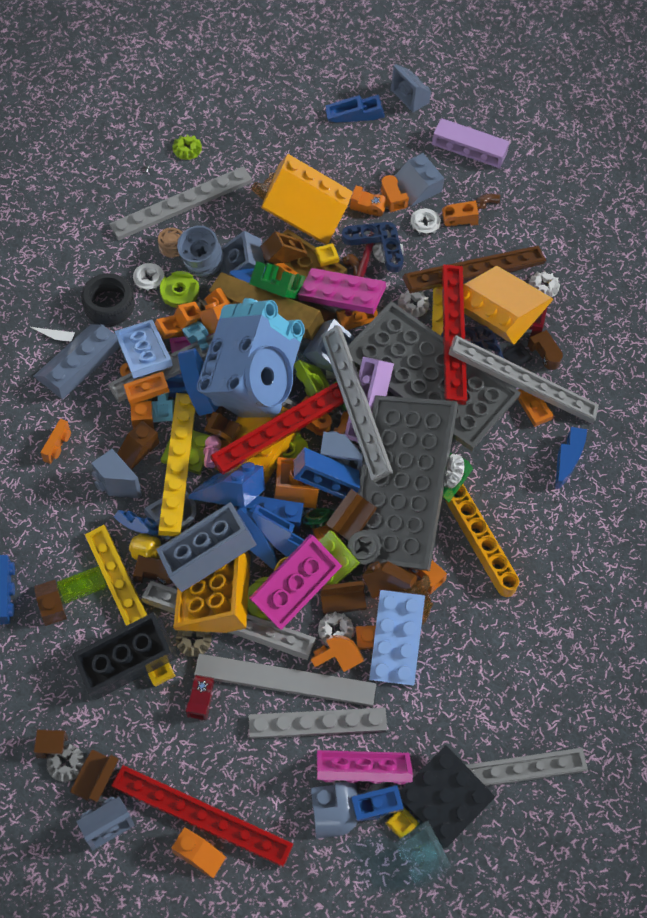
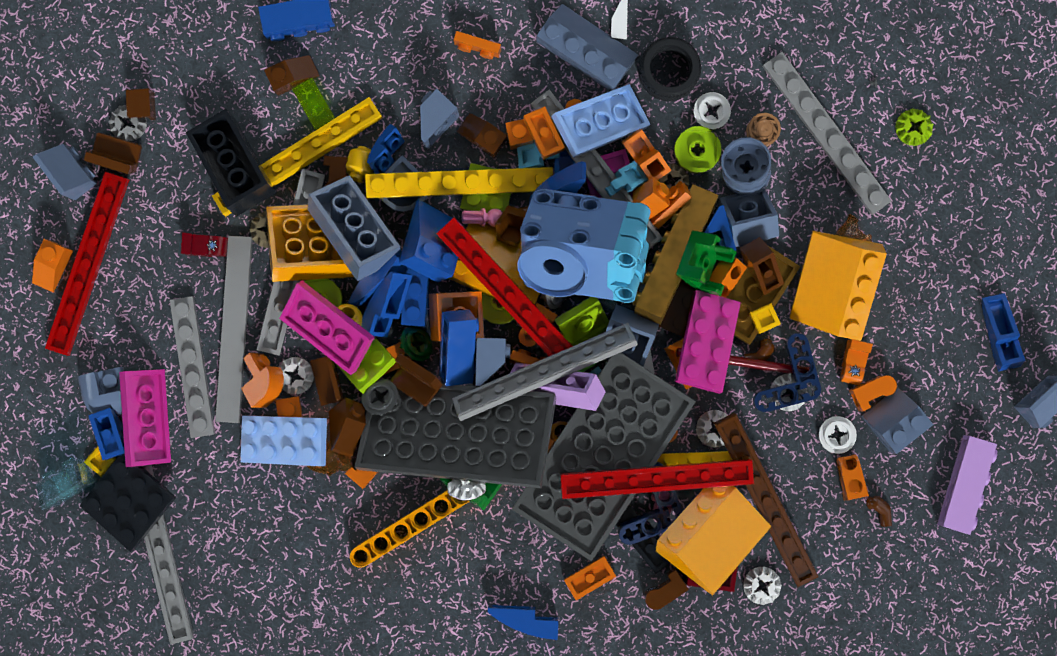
camera: 90 degrees right, 25 degrees up
(523, 379) = (610, 563): light grey tile -> none

